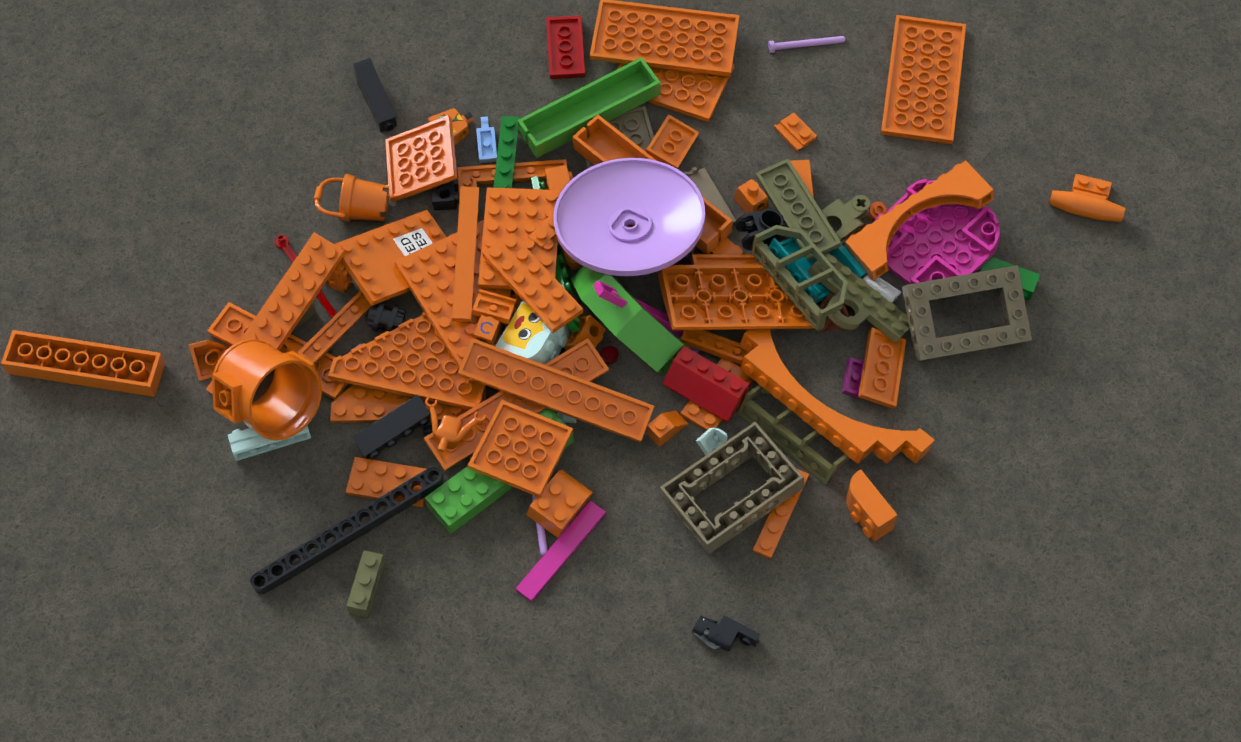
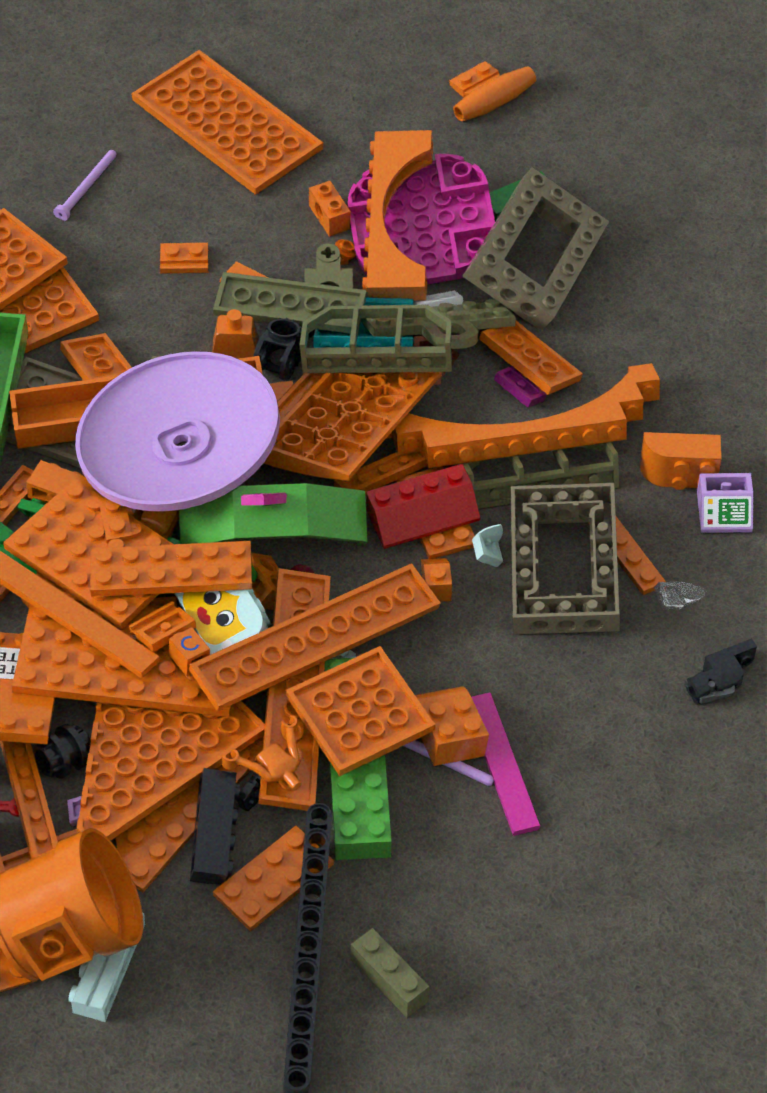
camera: 55 degrees left, 10 degrees down
(767, 571) = (678, 594): none -> clear plate
(859, 553) = (725, 502): none -> slope
(901, 179) = (329, 208): none -> orange brick

